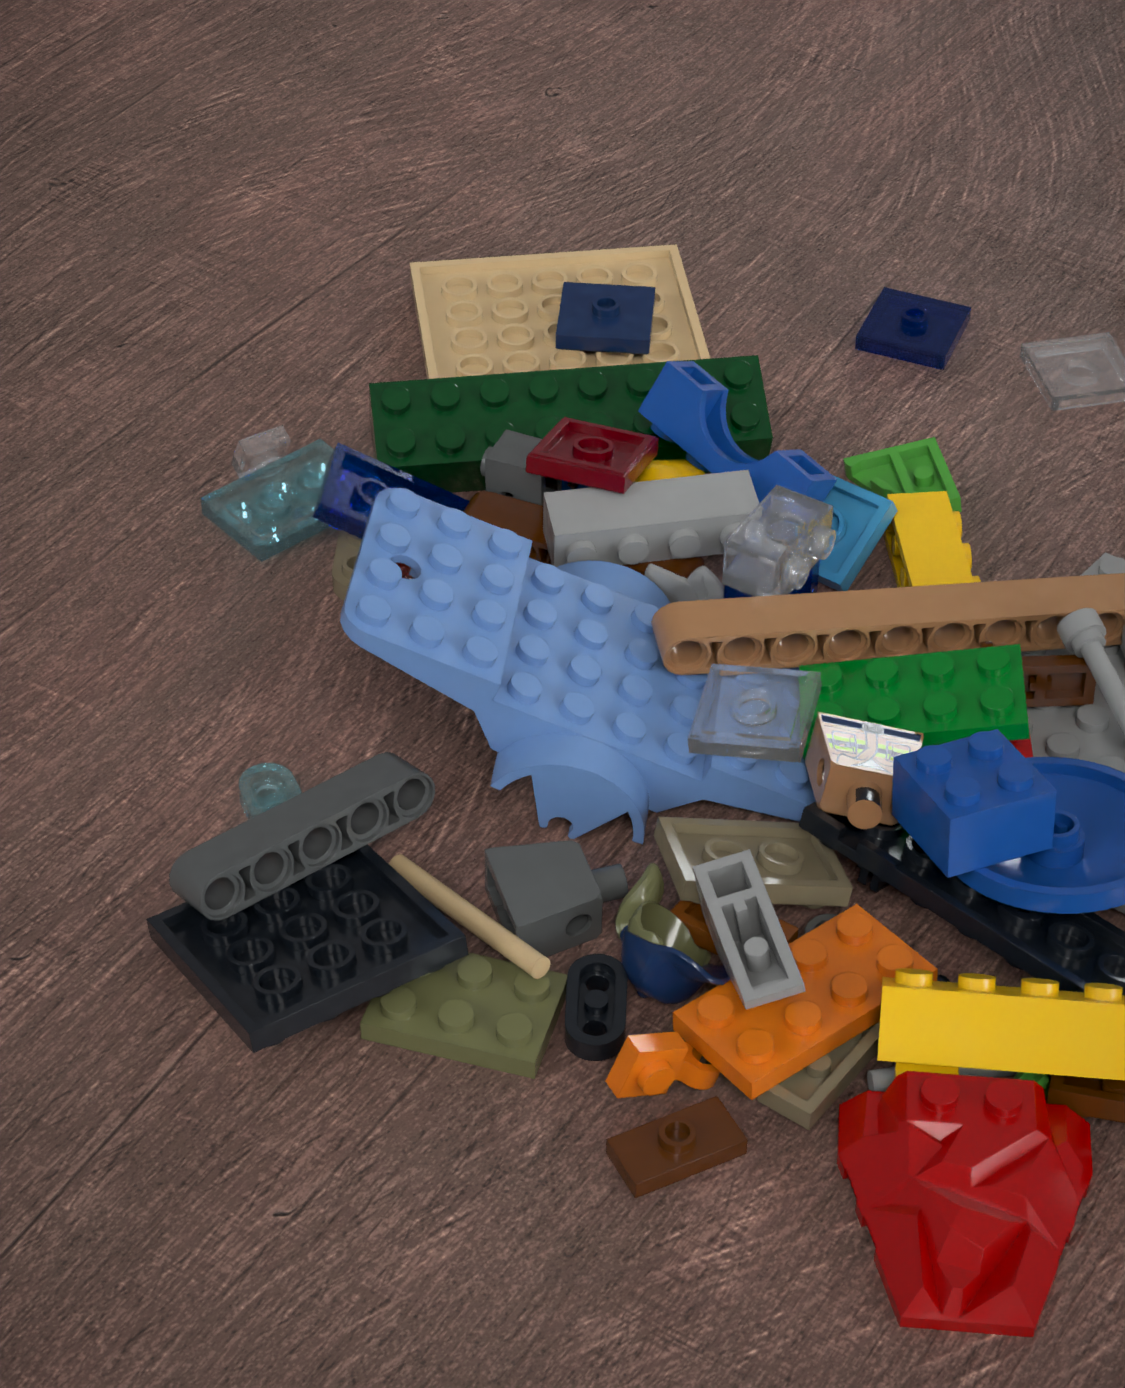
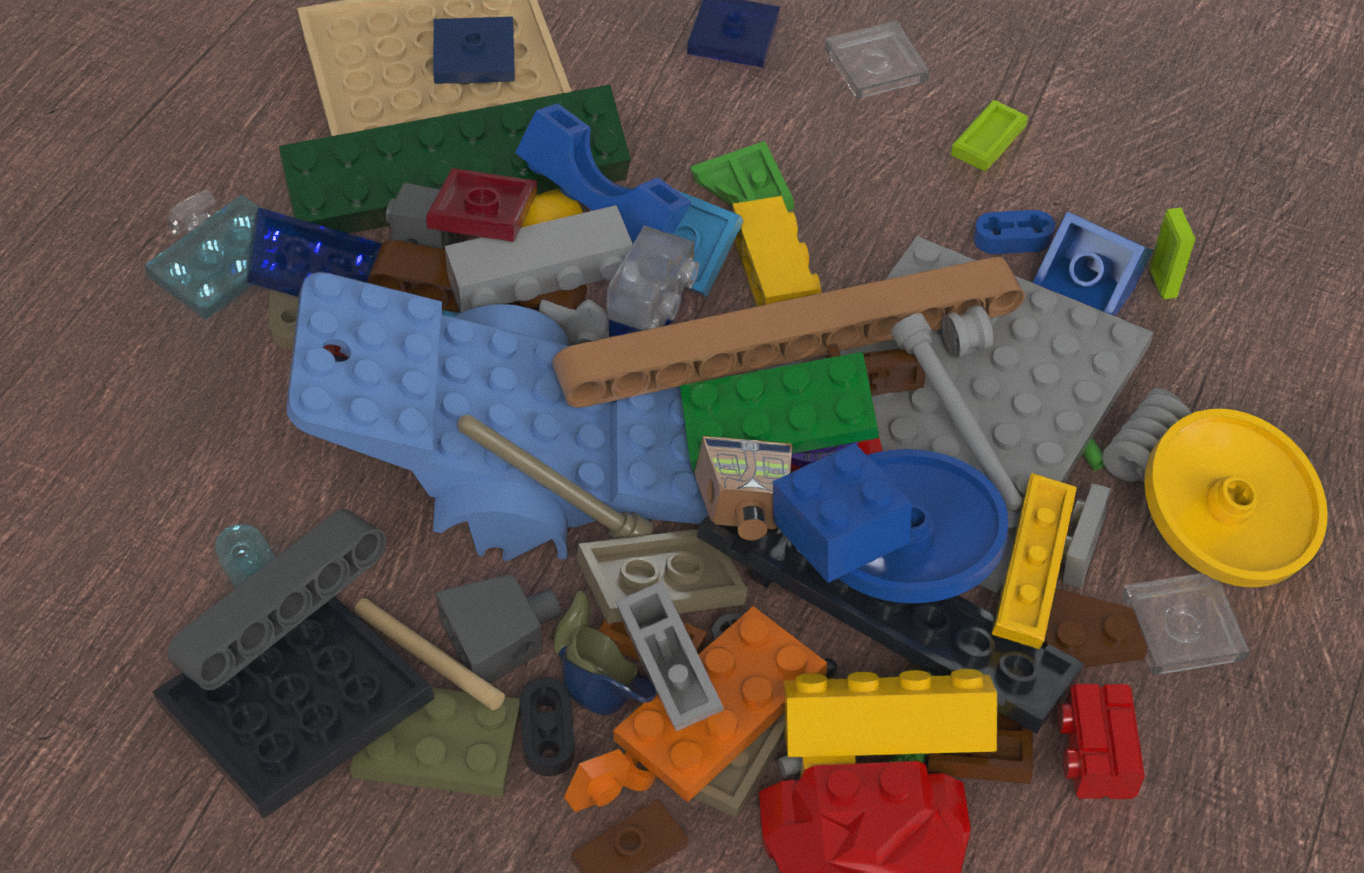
camera: 10 degrees left, 10 degrees up
(638, 743) = (620, 524): none -> dark tan piece
(755, 713) = (649, 439): clear tile -> none

